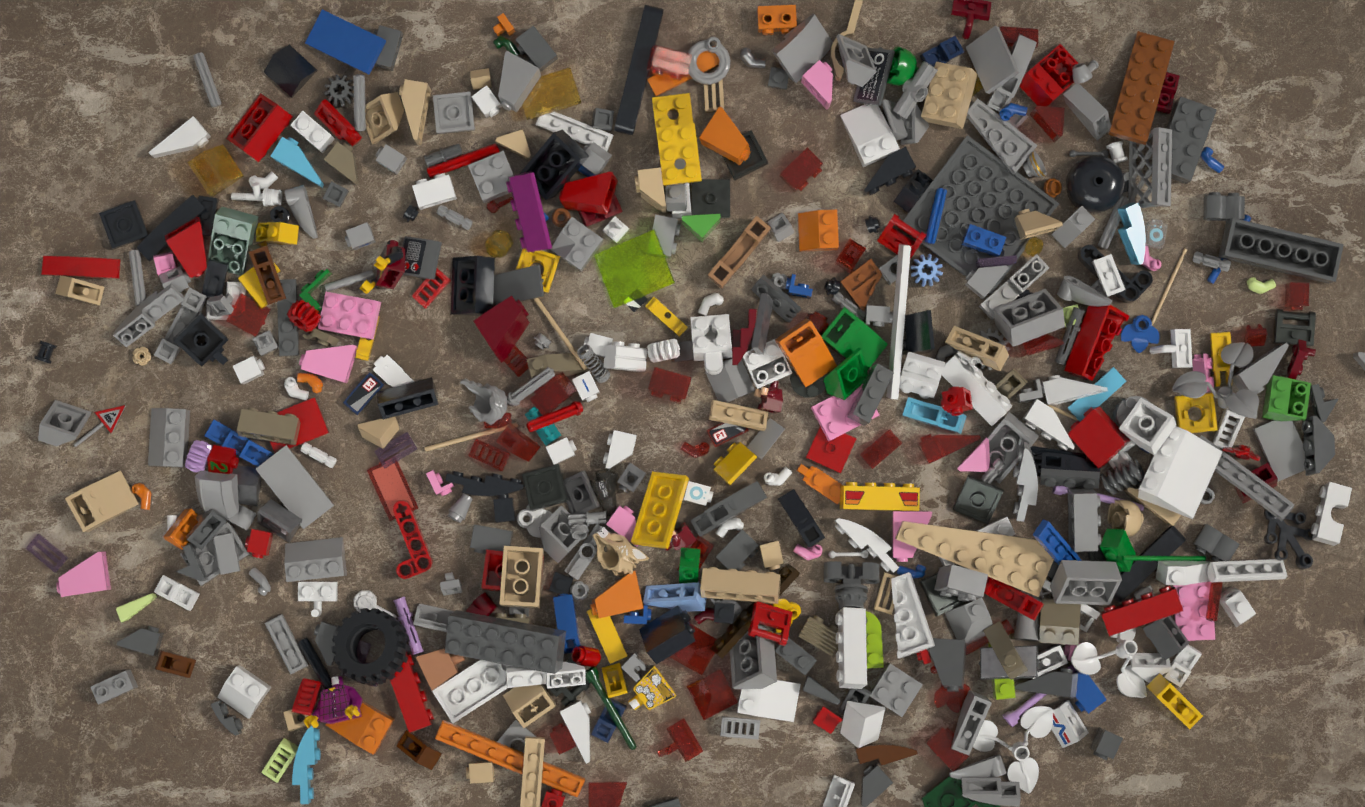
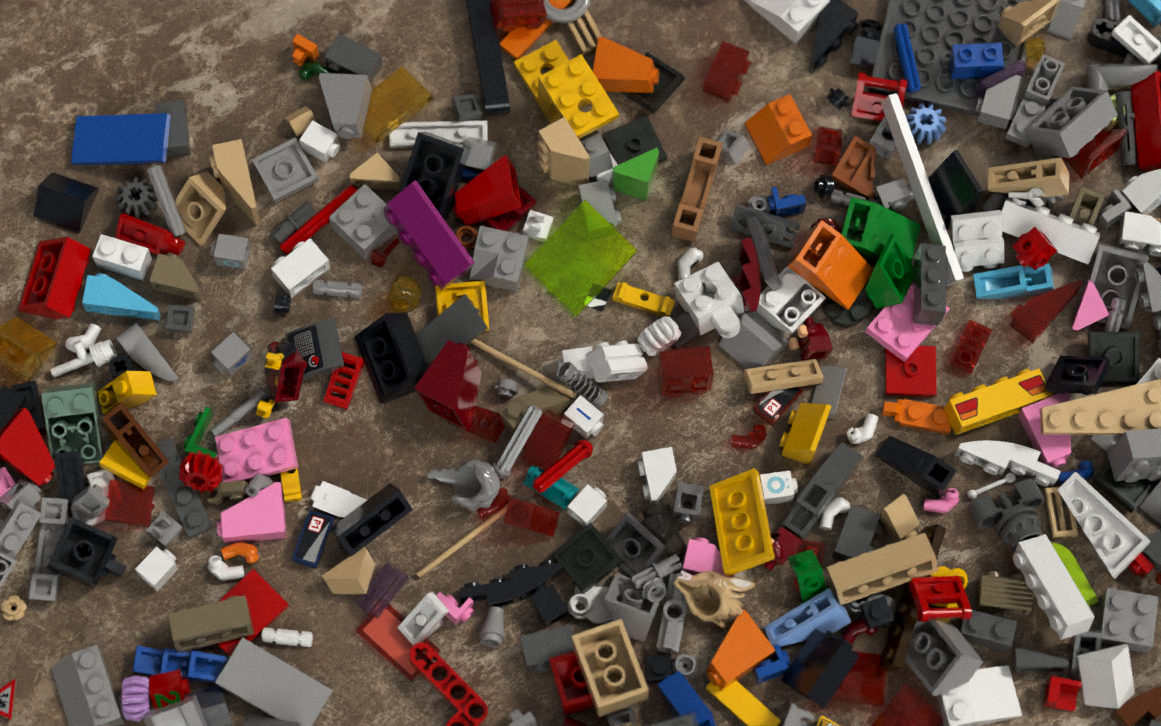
camera: 25 degrees left, 15 degrees down
(341, 339) = (258, 483): none -> light grey arm
(414, 484) = (423, 619): none -> white slope
(503, 462) = (511, 539): clear red slope -> none
(943, 504) = (1078, 374): none -> black plate

